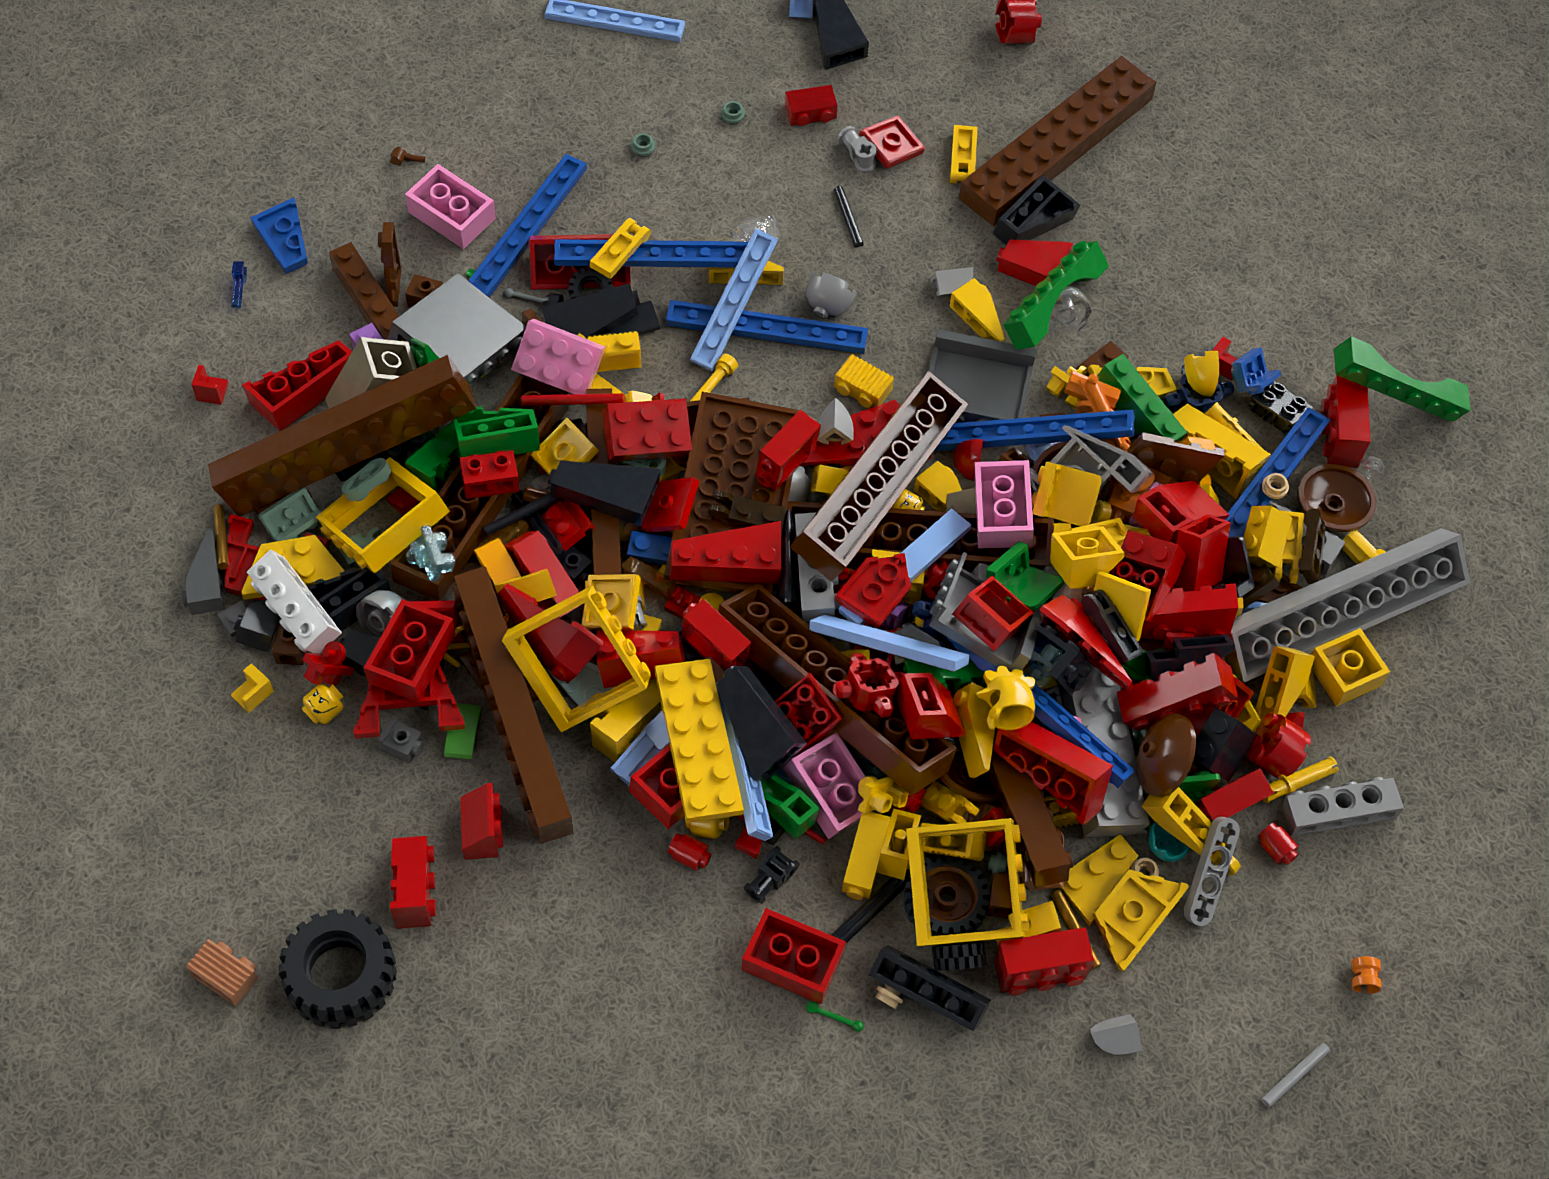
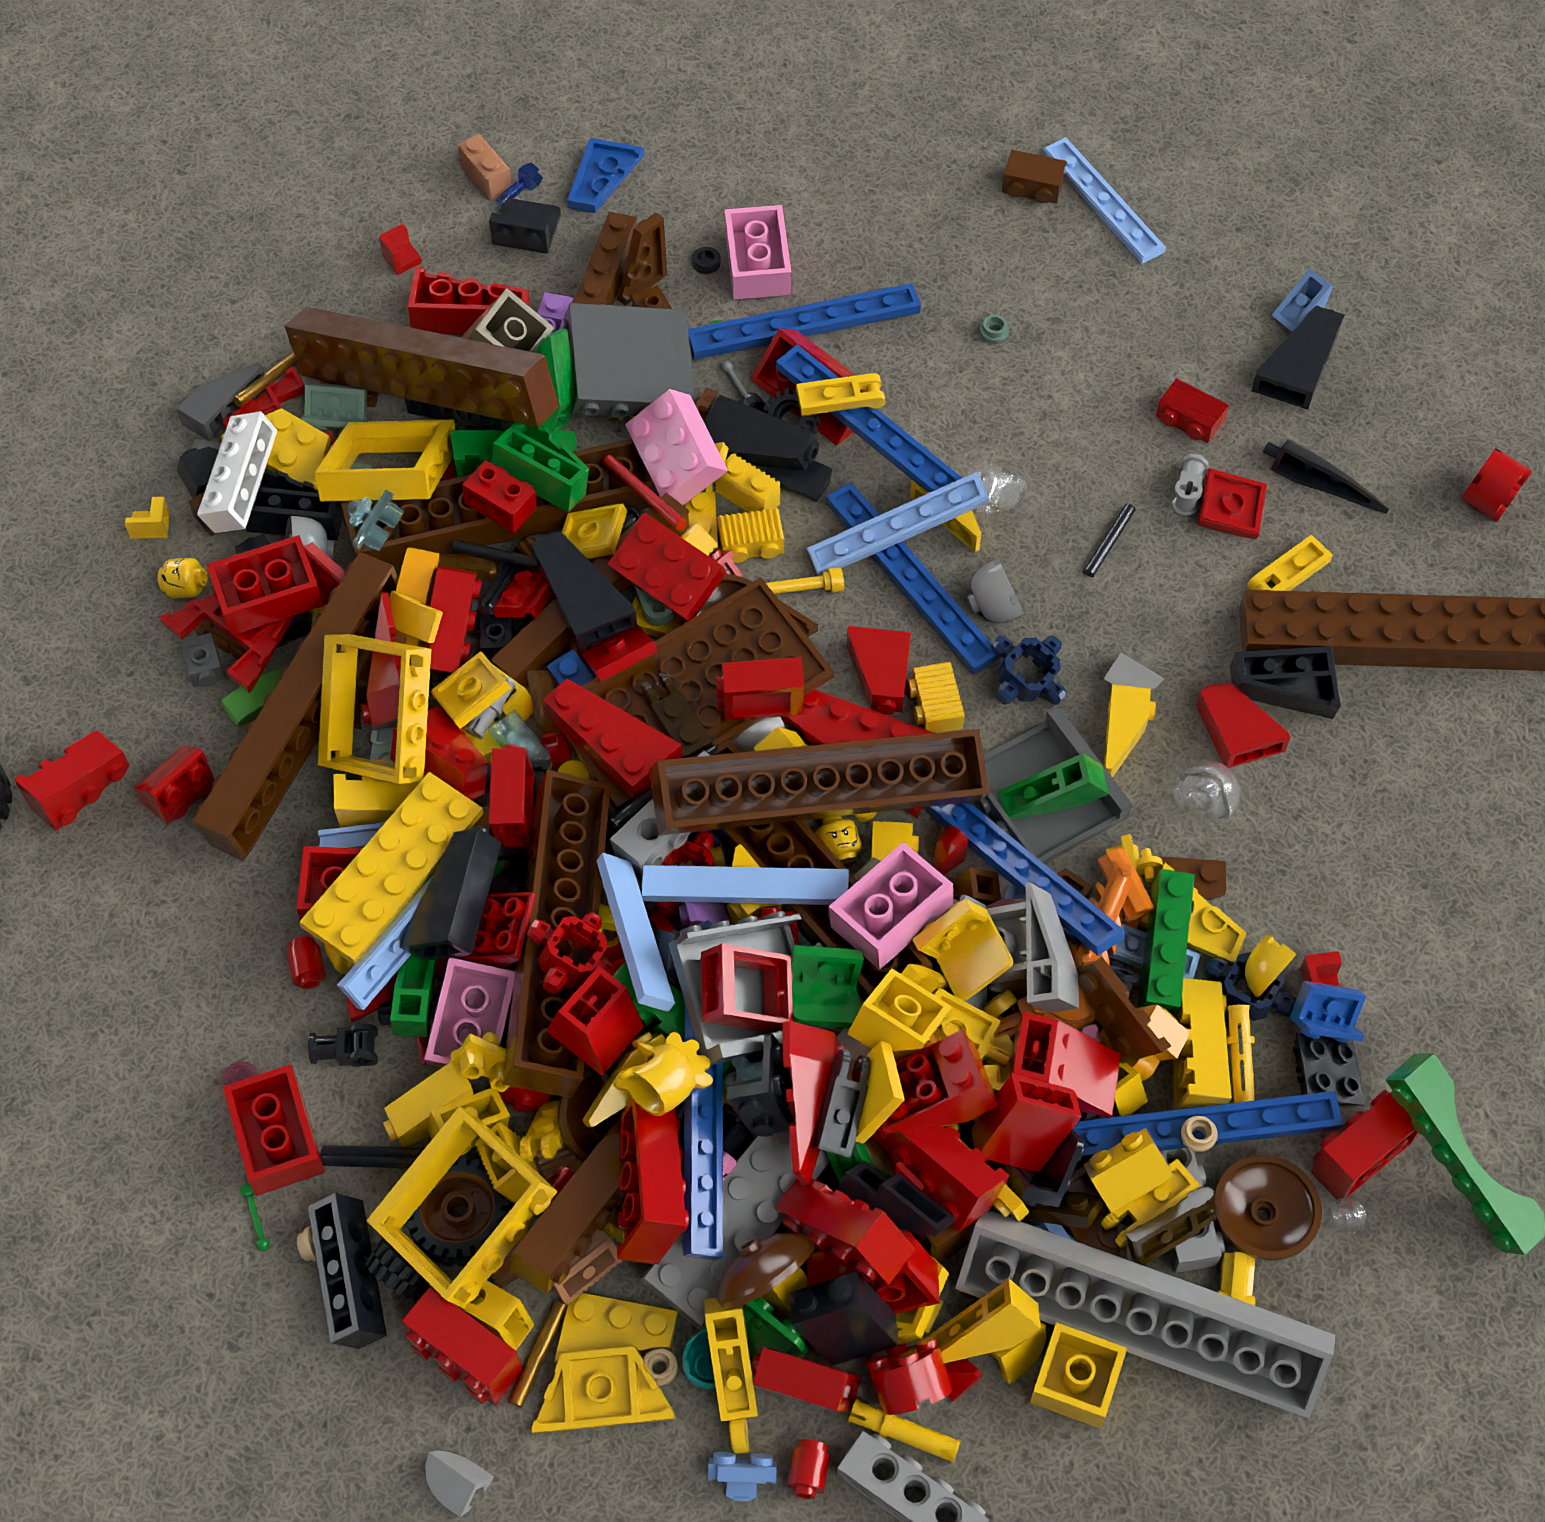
camera: 50 degrees right, 0 degrees up
(202, 289) = (484, 167): none -> nougat brick
(274, 305) = (525, 225): none -> black bracket
(327, 666) = (208, 543): red hips -> none
(366, 479) = (408, 420): sand green plate -> none
(399, 155) = (773, 178): reddish brown hand -> none
(412, 714) = (221, 639): none -> reddish brown axle
(417, 238) = (706, 260): none -> black tile
(561, 35) = (1034, 176): none -> reddish brown brick
(650, 375) = (751, 534): none -> yellow brick
(664, 608) = (515, 731): none -> clear light blue hips
(731, 951) = (238, 1071): none -> clear pink plate
(733, 107) = (1112, 355): sand green plate -> none
(809, 388) = (881, 665): none -> red slope
(835, 424) = (855, 710): light grey brick -> none
(876, 588) = (692, 876): red tile -> none
(889, 310) = (1043, 655): none -> dark blue piece
(912, 89) = (1317, 473): none -> black piece
(990, 375) = (1055, 789): none -> green slope
(1031, 320) = (1147, 770): green arch -> none
(1207, 869) = (703, 1421): light grey beam -> none
(1249, 881) = (742, 1474): none -> medium blue piece

